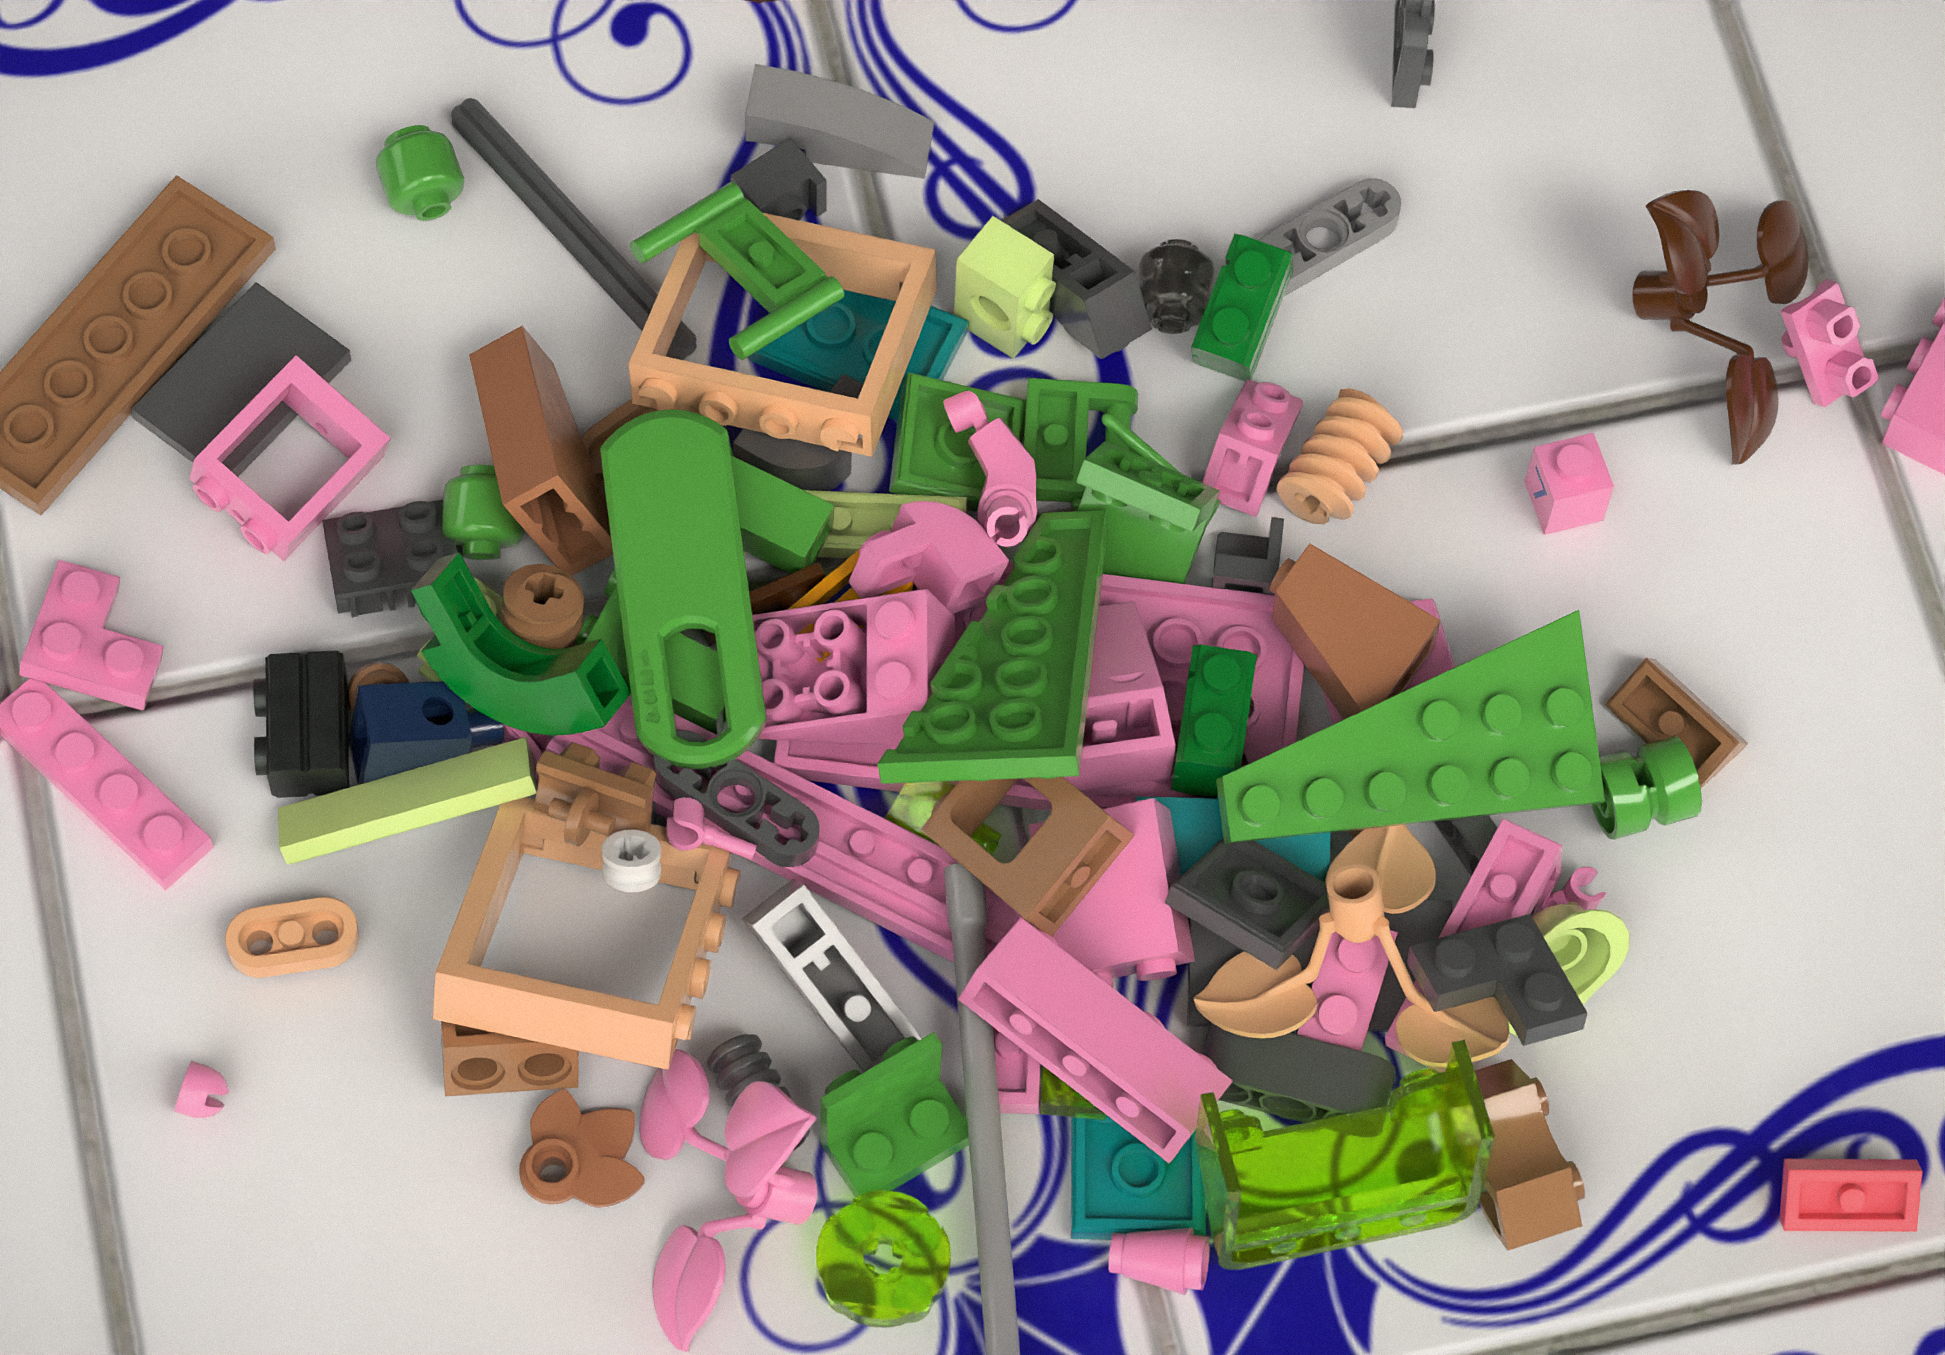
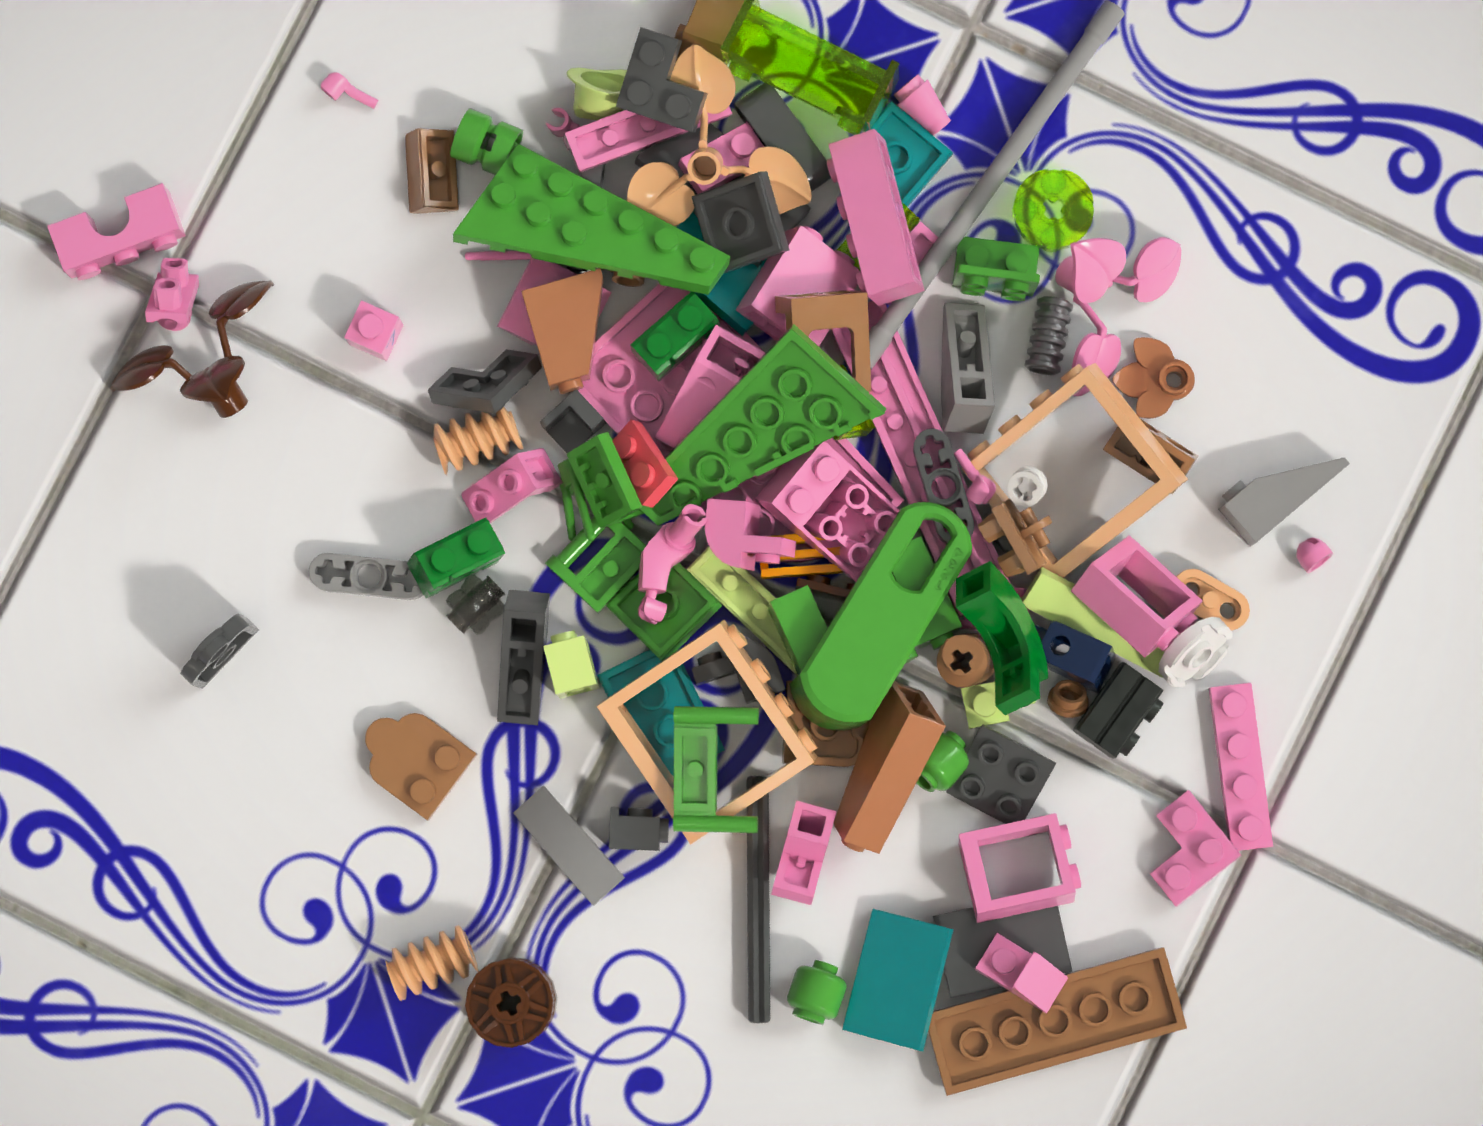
camera: 135 degrees left, 20 degrees up
(188, 352) = (1022, 973): none -> bright pink slope
(258, 855) = (1195, 651): none -> white tile
(304, 1119) = (1271, 498): none -> light grey slope
(335, 253) = (897, 980): none -> teal tile
(390, 795) = (1127, 612): none -> bright pink window
(558, 298) = (803, 852): none -> bright pink brick
(1090, 96) = (416, 760): none -> medium nougat plate
(1122, 546) = (644, 463): none -> coral plate
(1376, 506) = (488, 389): none -> dark grey plate
(1879, 734) = (336, 84): none -> bright pink hand

